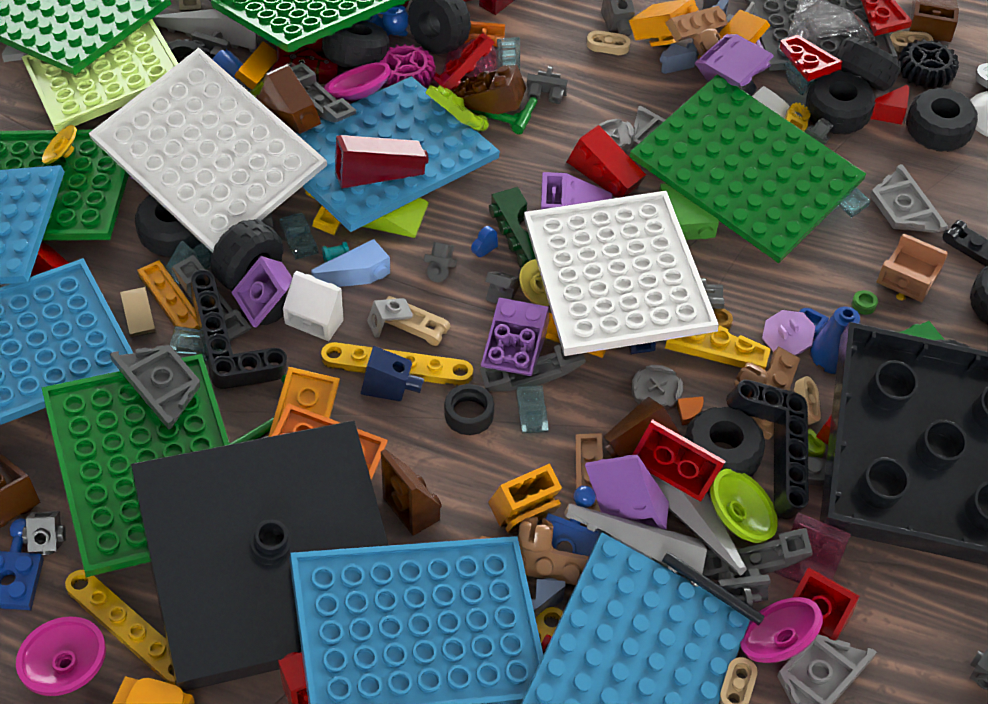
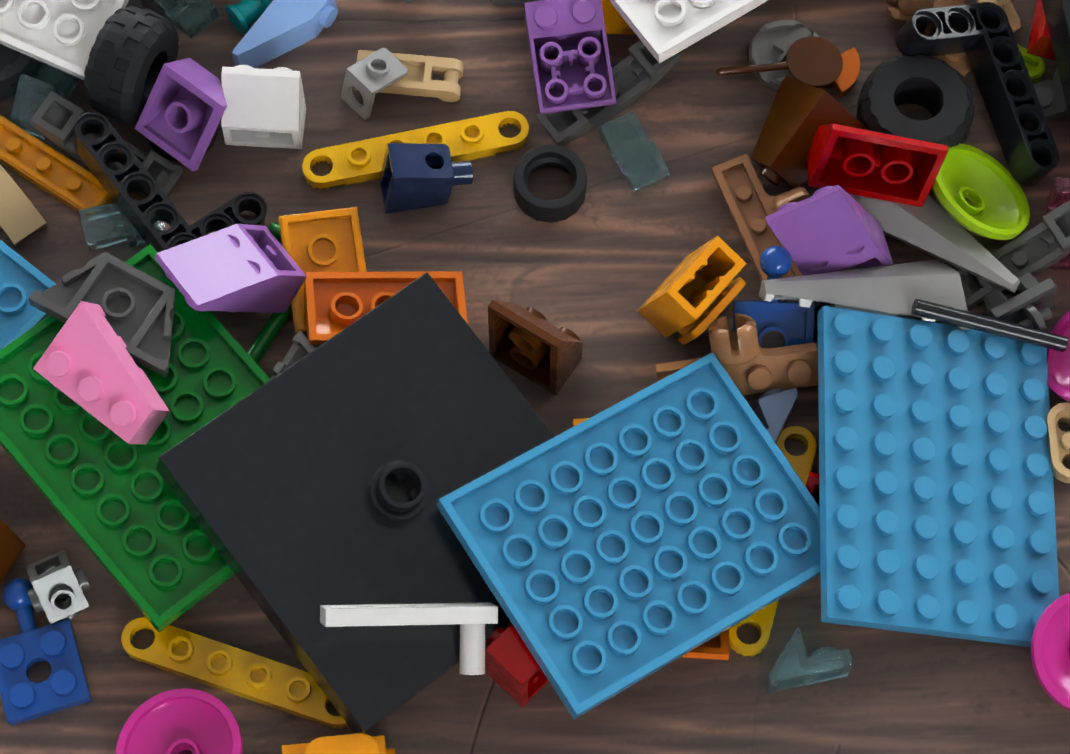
camera: 20 degrees left, 15 degrees up
(126, 410) = (101, 376): none -> bright pink wedge
(244, 386) = (234, 271): none -> slope
(278, 636) = (470, 616): none -> white piece
(668, 393) = (807, 60): none -> reddish brown piece

